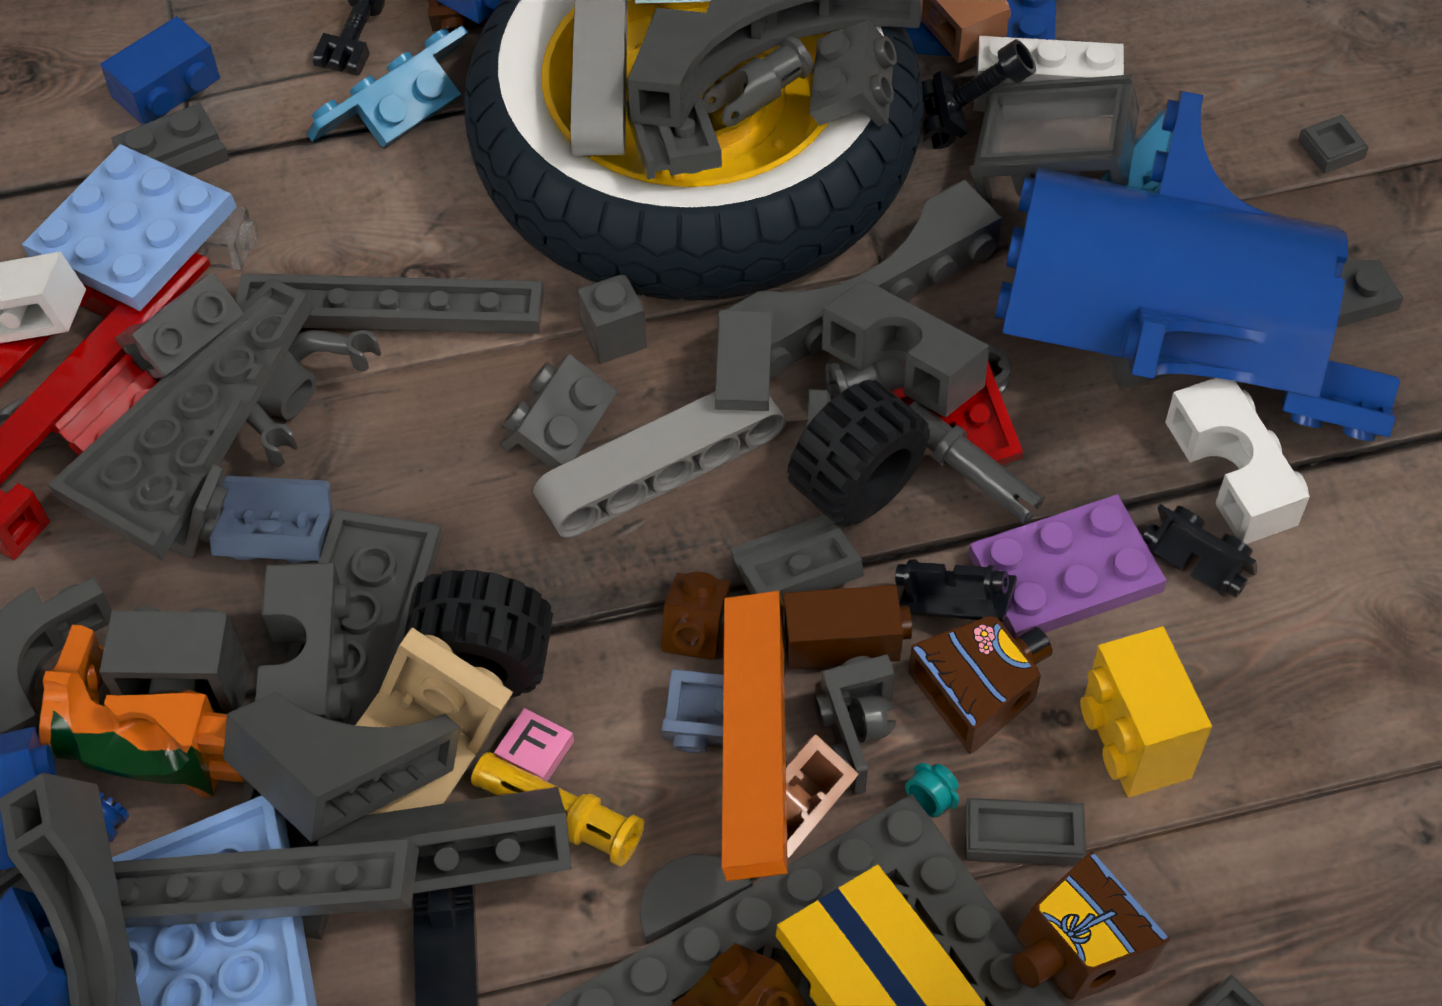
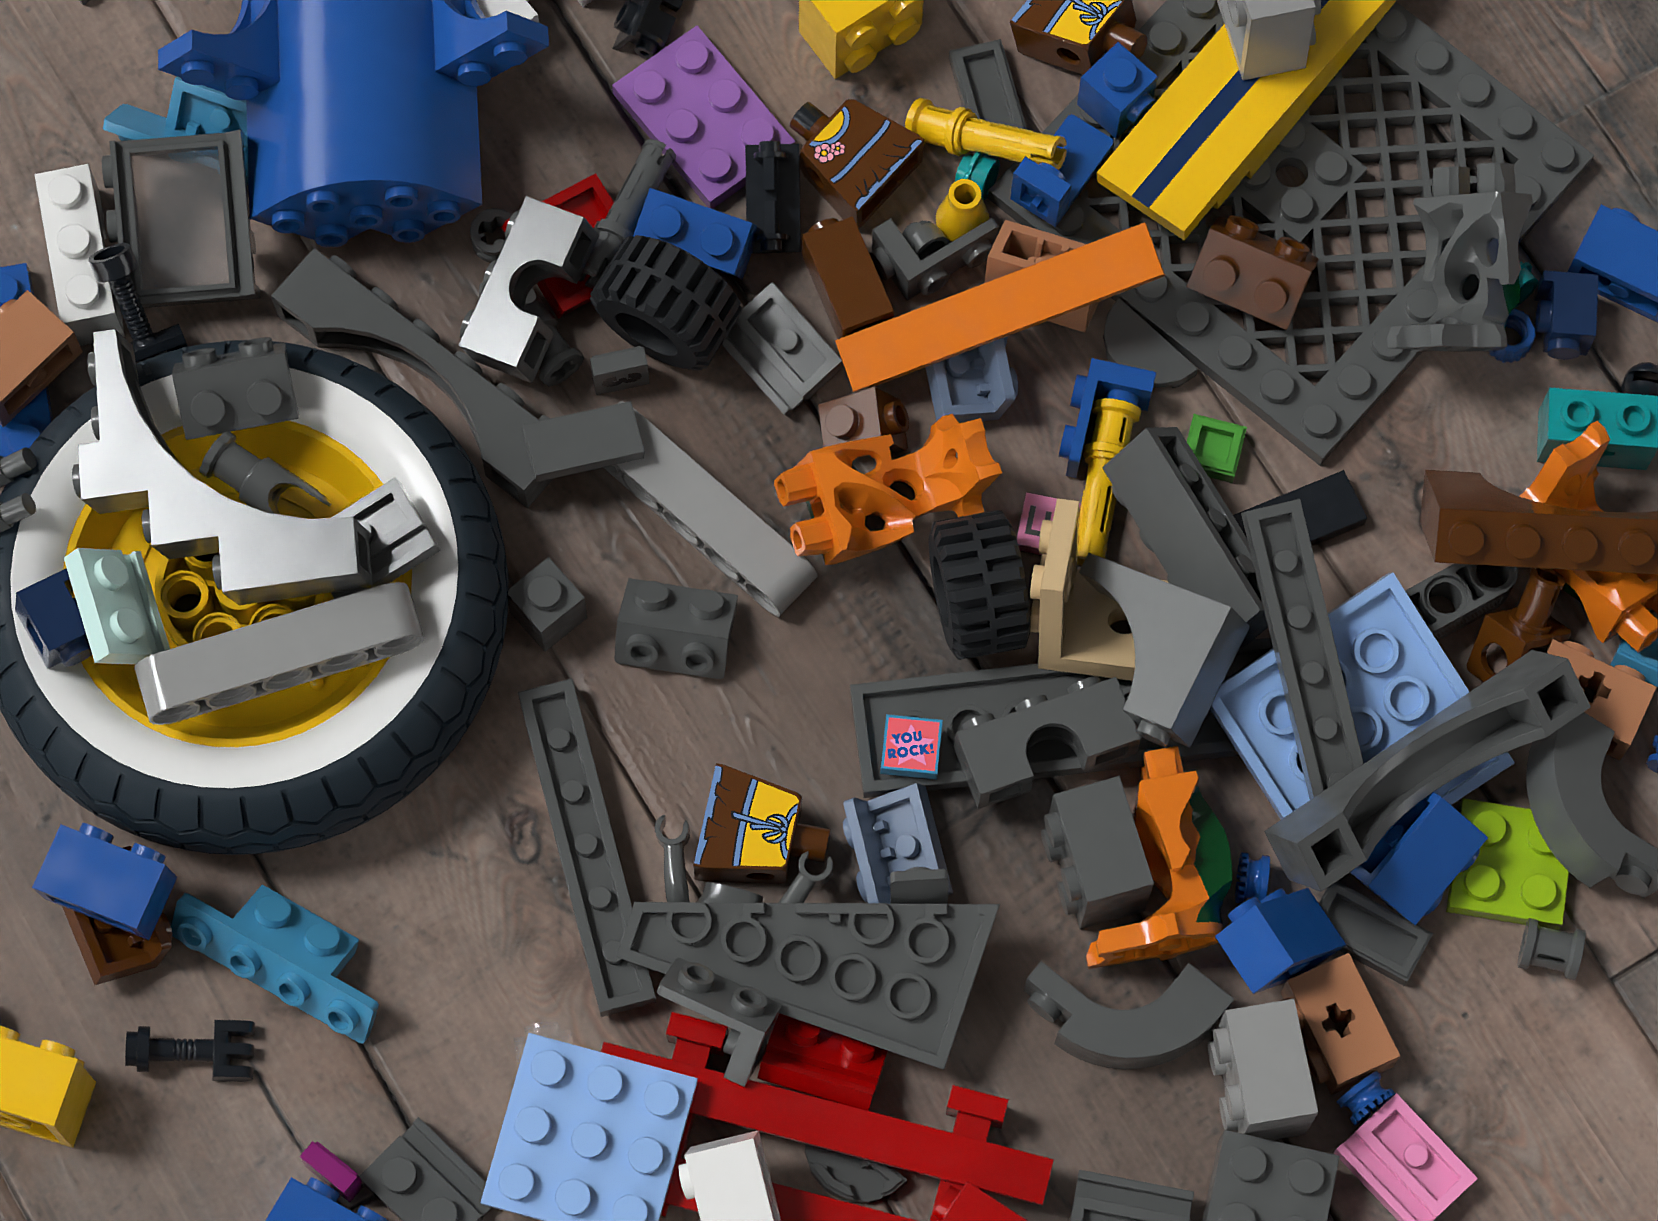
camera: 110 degrees left, 15 degrees up
(211, 83) = (331, 1170): none -> magenta tile
(344, 419) = (753, 831): none -> torso
(355, 549) = (911, 746): none -> tile
(557, 931) = (1216, 446): none -> bright green tile
(610, 550) = (843, 497): none -> orange hips
(662, 832) = (1103, 381): none -> blue bracket
(891, 756) = (961, 209): none -> yellow cone
(893, 840) = (1052, 191): none -> blue bracket
(933, 510) = (709, 235): none -> blue brick
(976, 776) = (963, 132): none -> yellow pin
(977, 926) = (1117, 90): none -> blue brick

